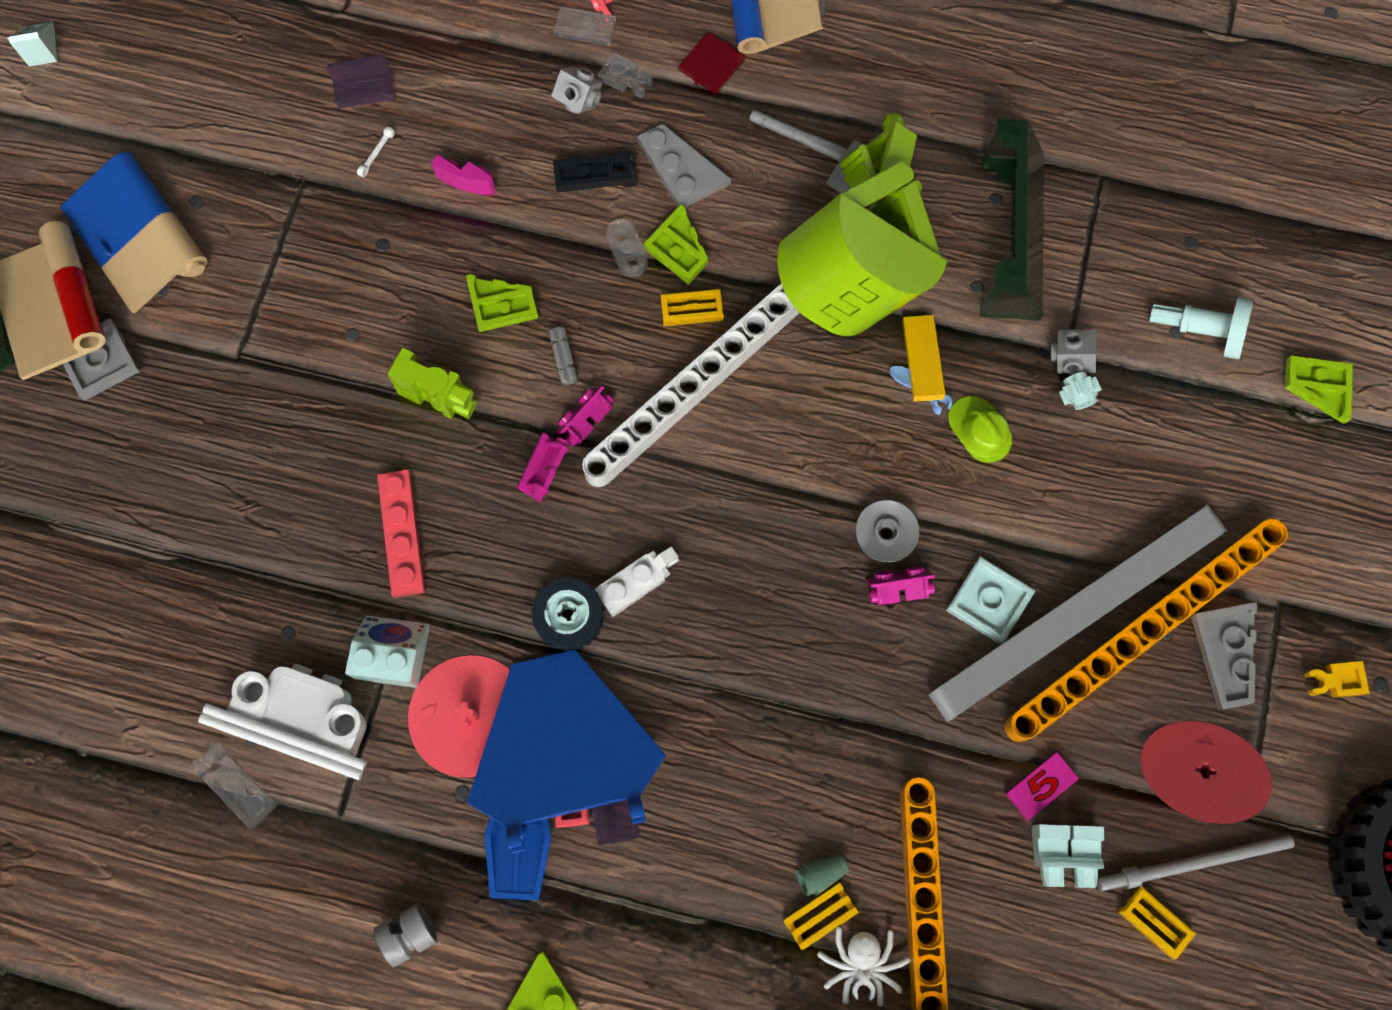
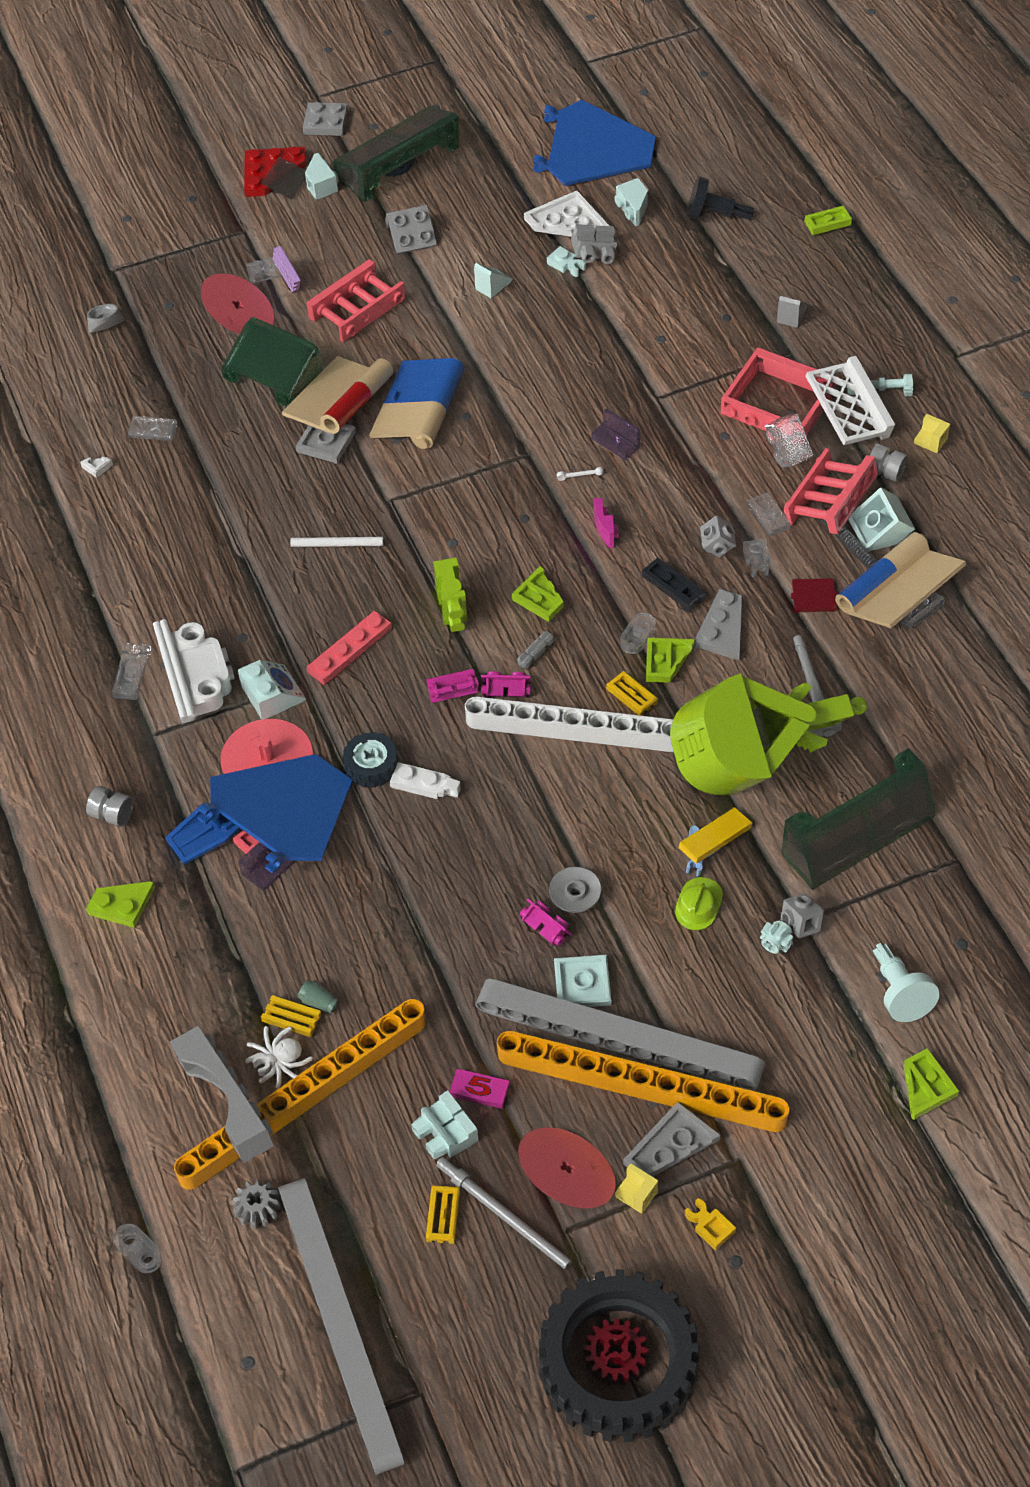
camera: 55 degrees right, 20 degrees down
(247, 447) = (336, 541): none -> white bar
(1259, 719) = (637, 1189): none -> light yellow panel

